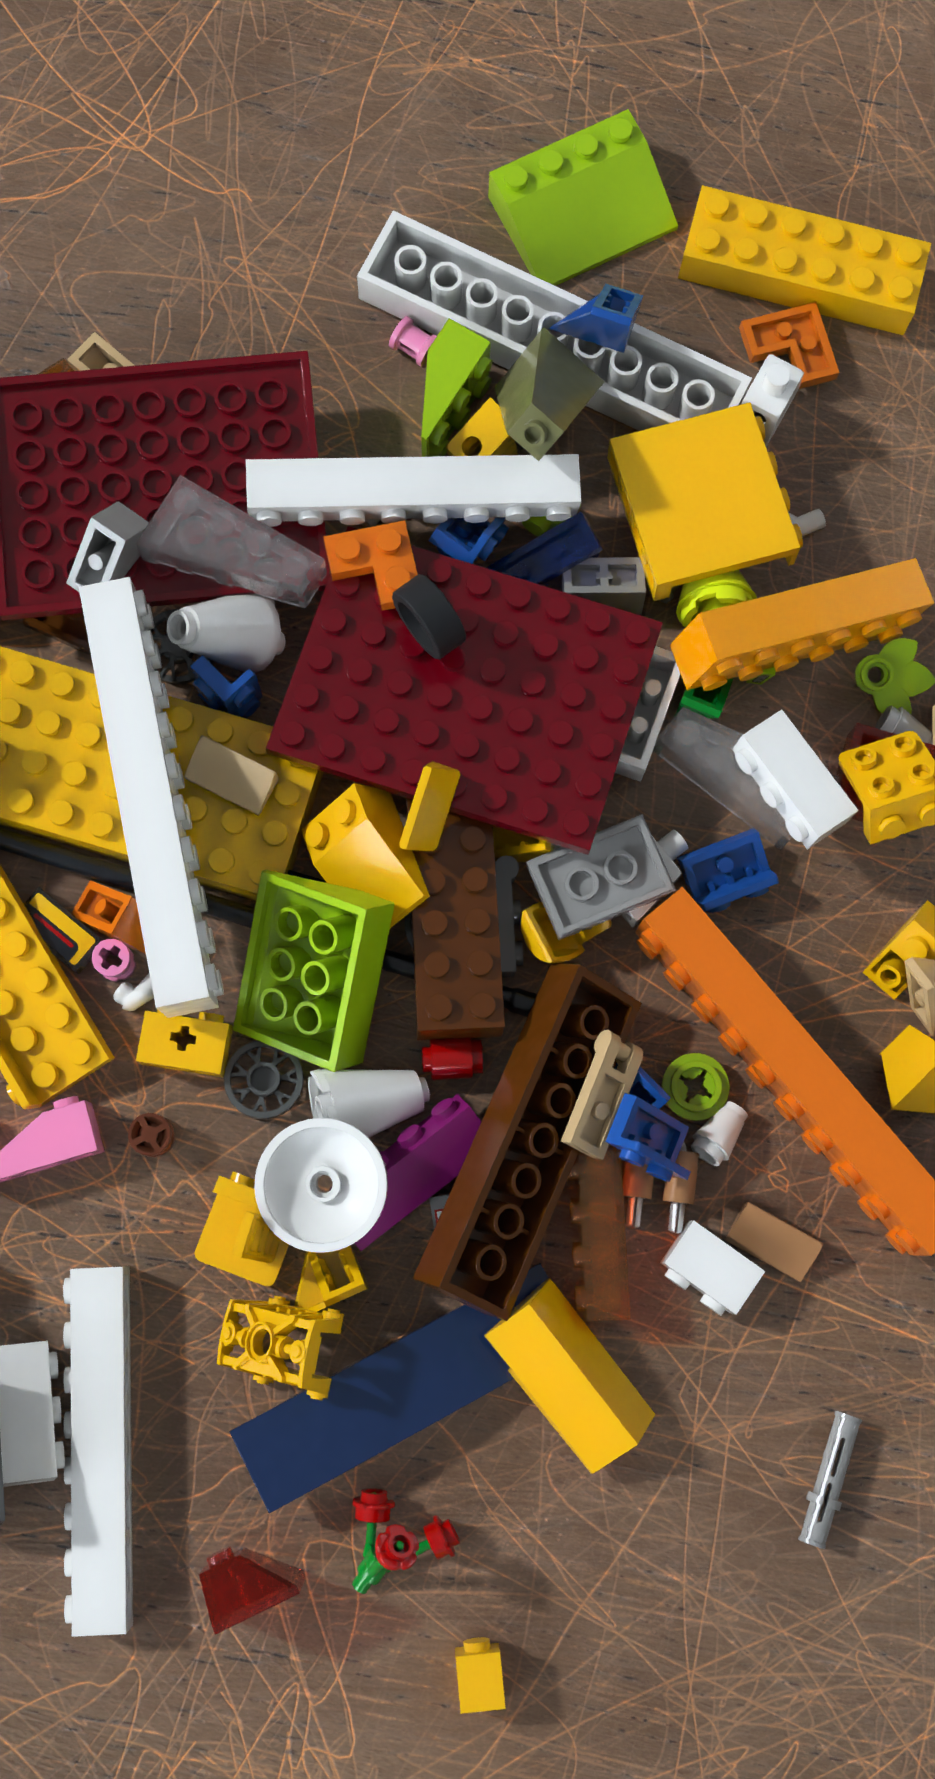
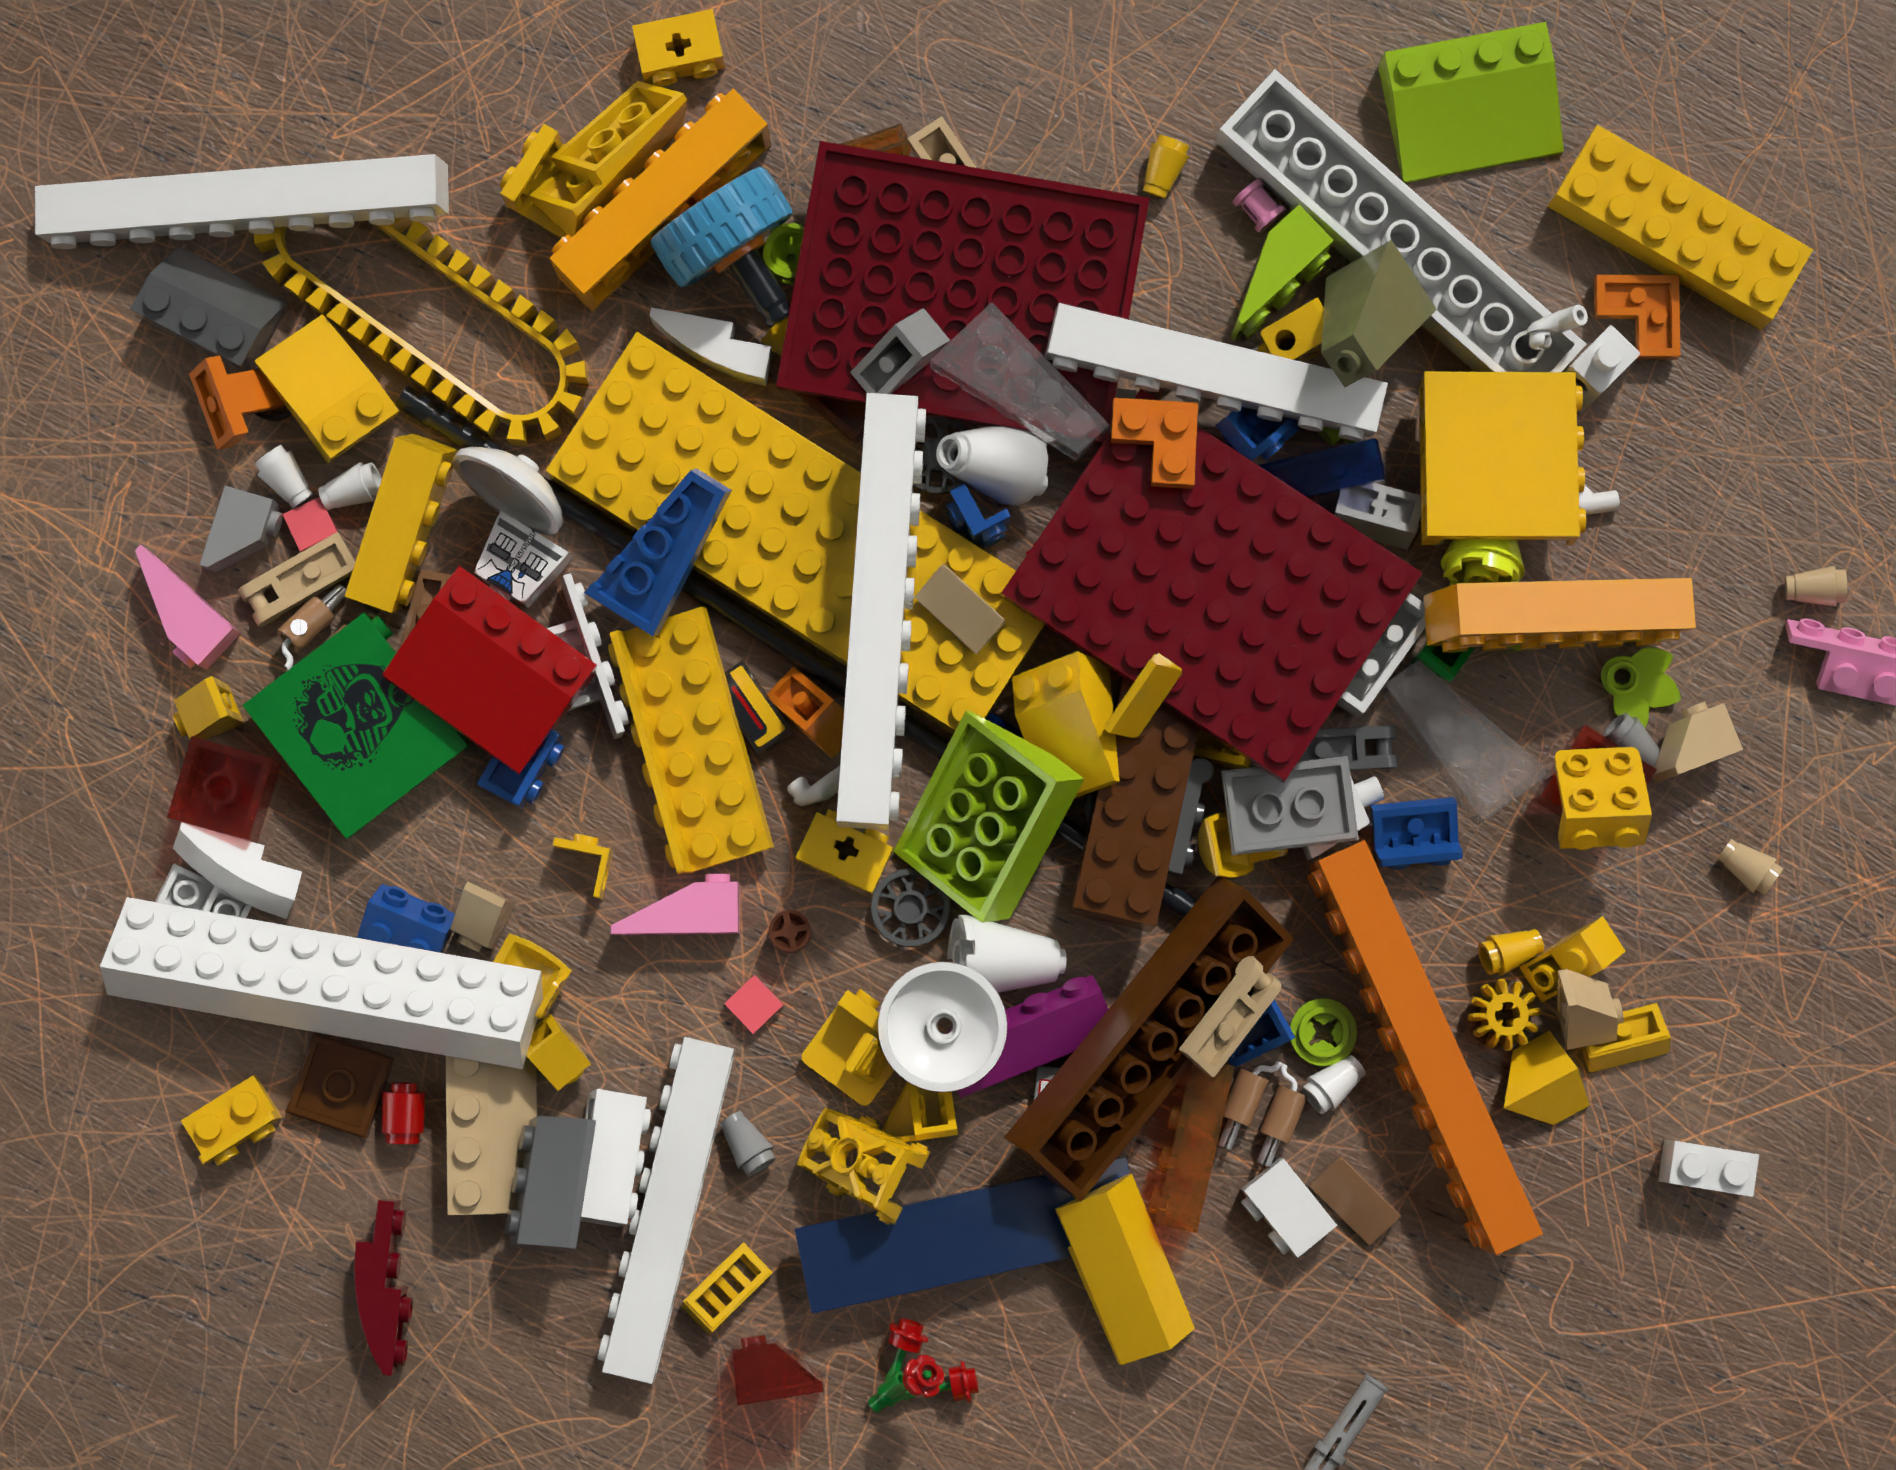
camera: 15 degrees right, 5 degrees up
(115, 948) = (799, 740): bright pink bush -> none
(135, 1217) = (754, 1004): none -> coral tile
(164, 1359) = (748, 1146): none -> light grey cone
(166, 1502) = (695, 1310): none -> yellow slope
(317, 328) = (1164, 165): none -> yellow cone
(429, 616) = (1194, 511): black tyre -> none
(452, 1058) = (1097, 939): red brick -> none
(604, 319) = (1455, 242): blue slope -> none
(642, 802) = (1350, 743): none -> dark grey plate
(648, 1138) = (1262, 1069): blue bracket -> none
(709, 372) = (1555, 323): none -> white arm
(793, 779) = (1503, 765): white brick -> none
(846, 960) = (1509, 950): none -> yellow cone
(876, 1030) = (1513, 1025): none -> yellow gear

